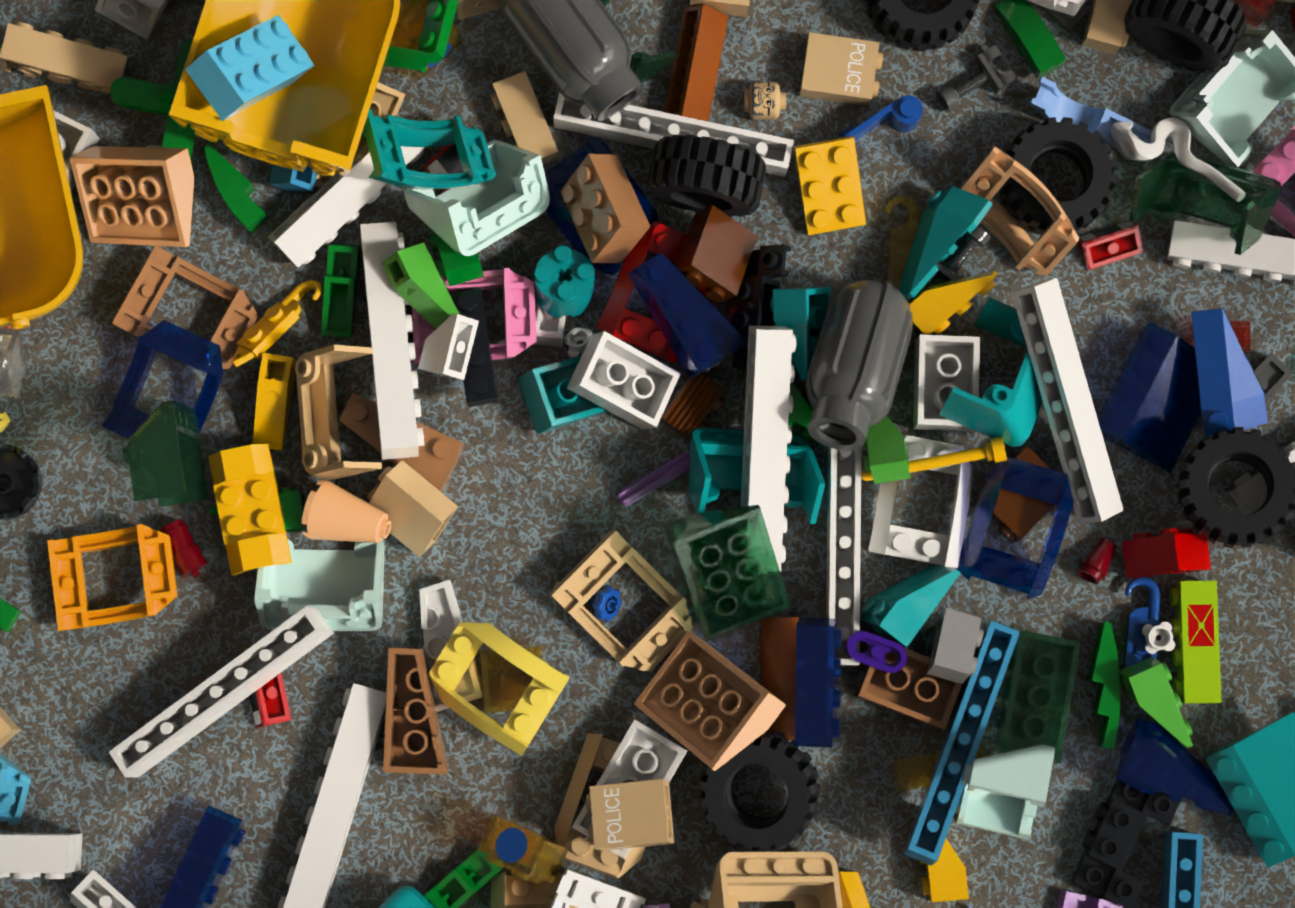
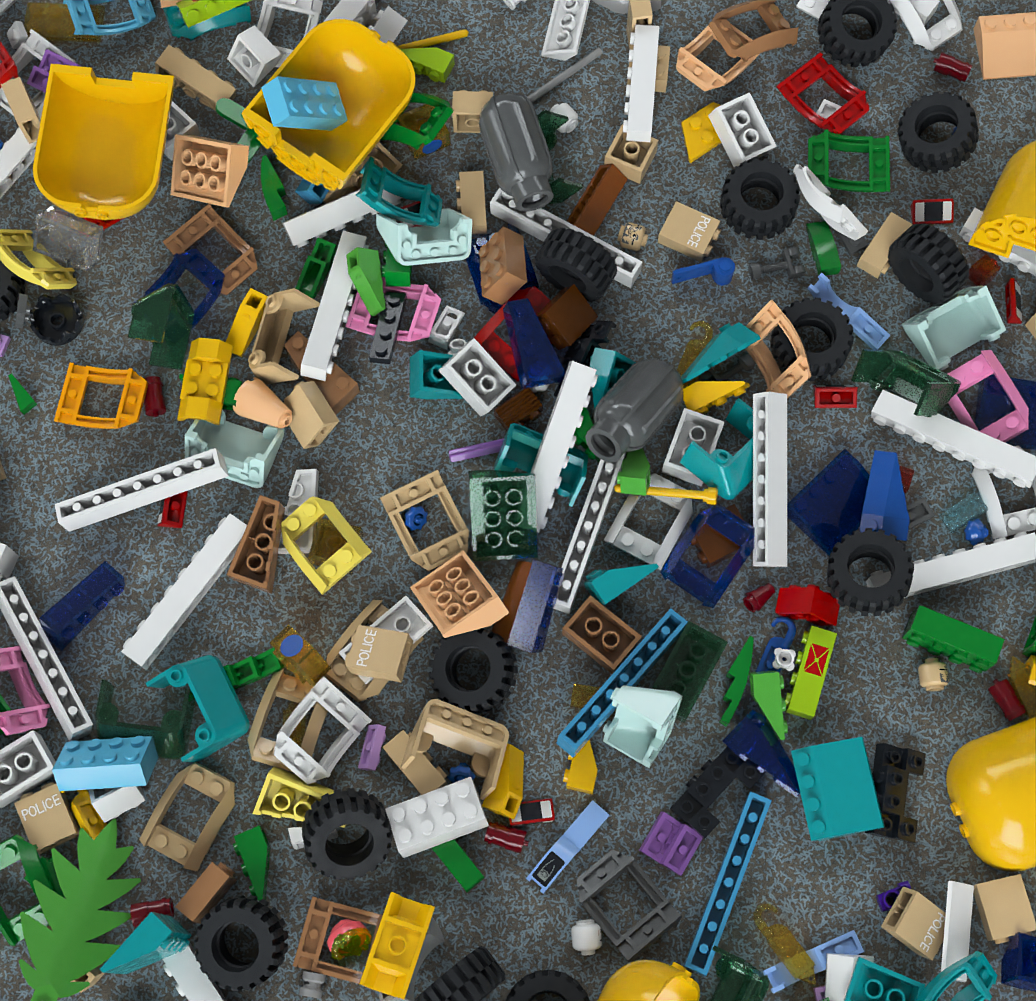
camera: 25 degrees right, 10 degrees down
(274, 323) = (266, 275): yellow plate -> none
(449, 347) = (370, 319): white slope -> none
(564, 282) = (461, 306): teal brick -> none
(830, 185) = (657, 299): yellow plate -> none
(876, 651) = (584, 601): dark purple plate -> none
(953, 646) = (639, 615): light grey brick -> none
(1177, 132) = (897, 332): white animal -> none

